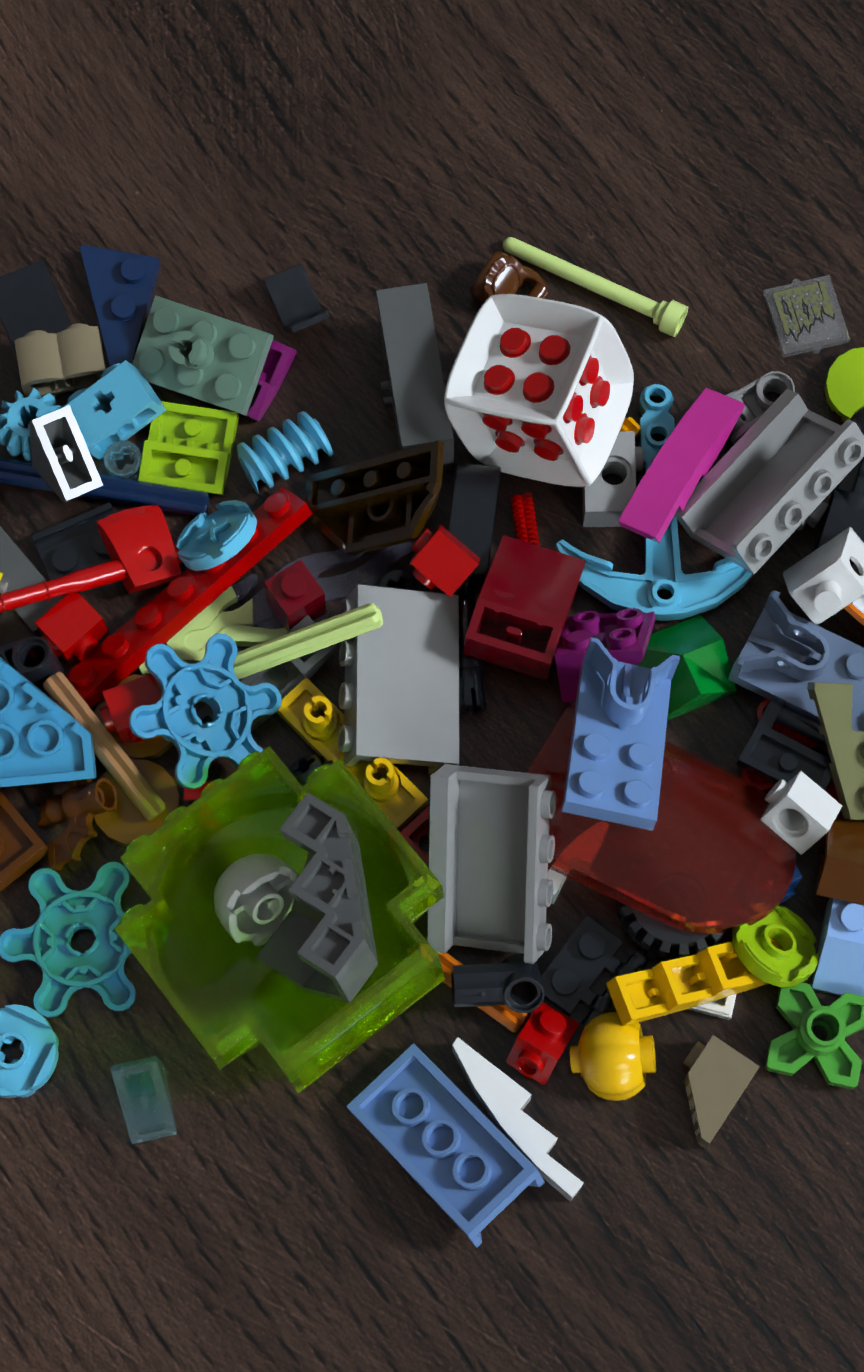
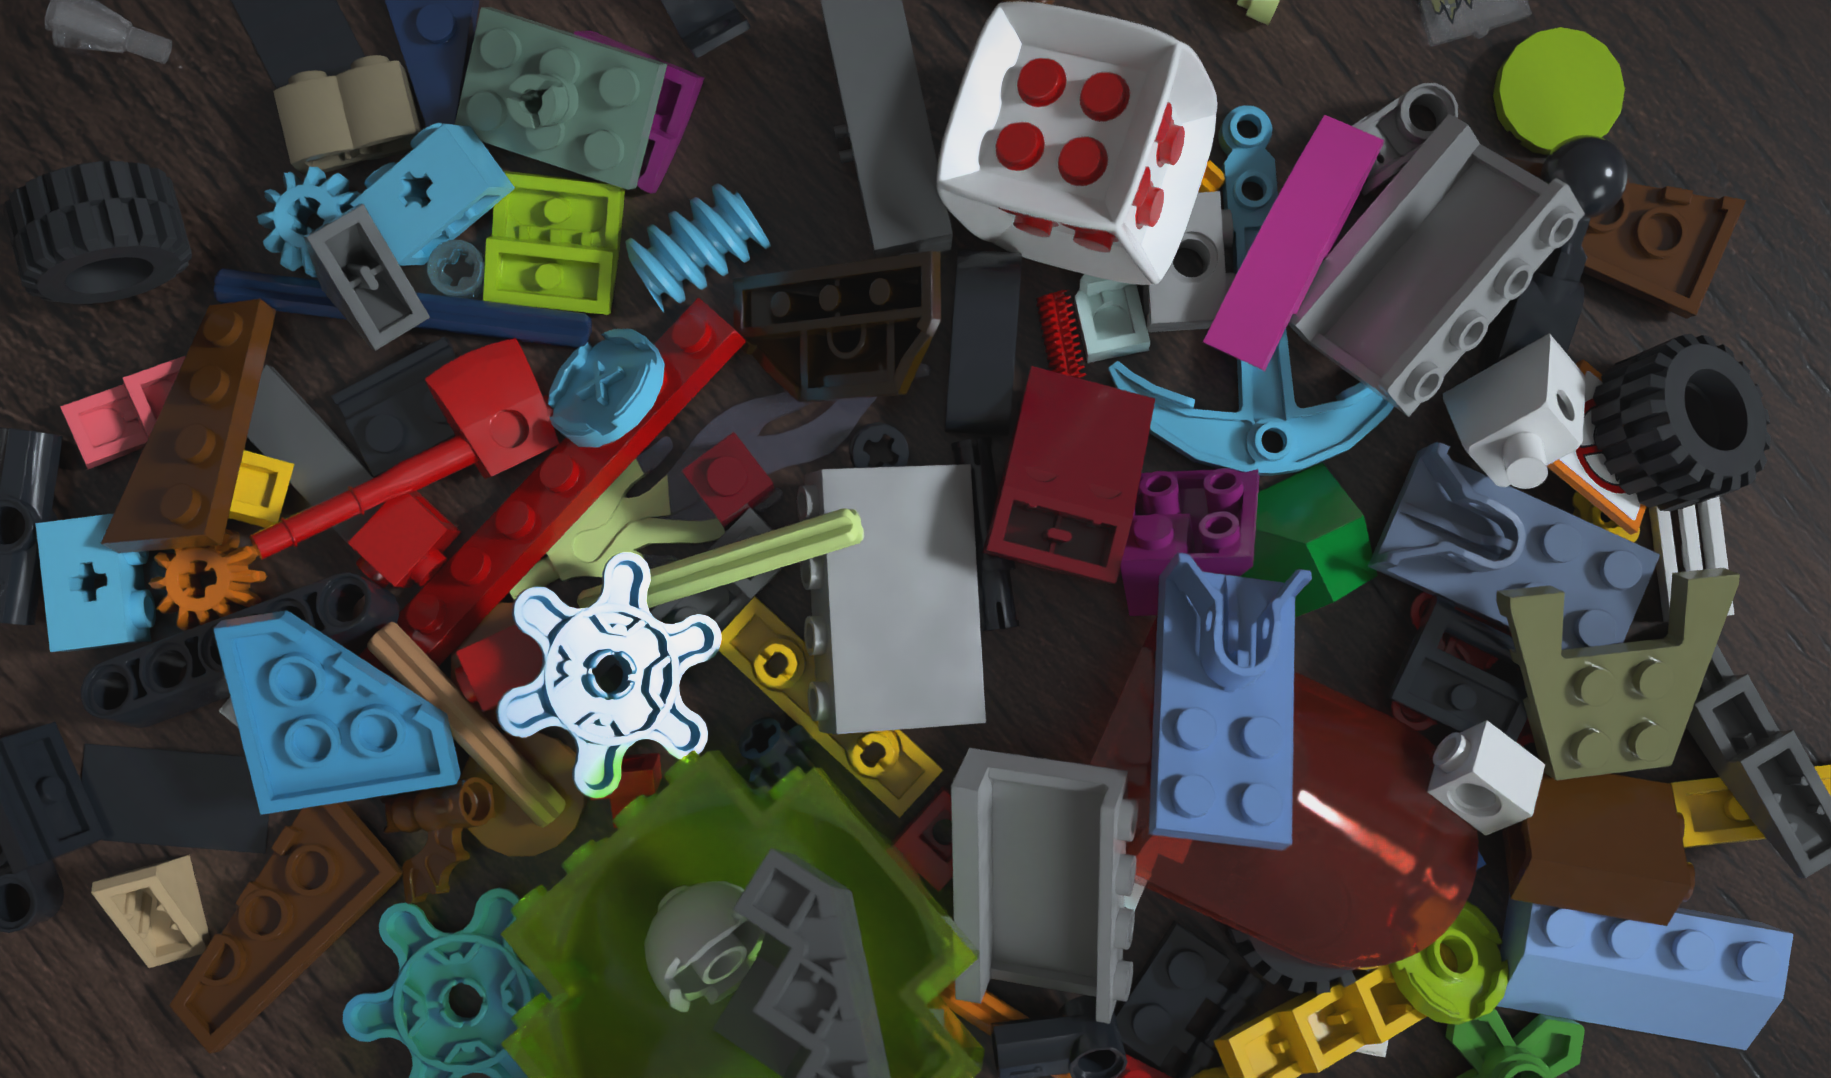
camera: 10 degrees left, 15 degrees up
(442, 560) = (946, 419): red brick -> none
(559, 513) = (1110, 319): none -> light aqua slope

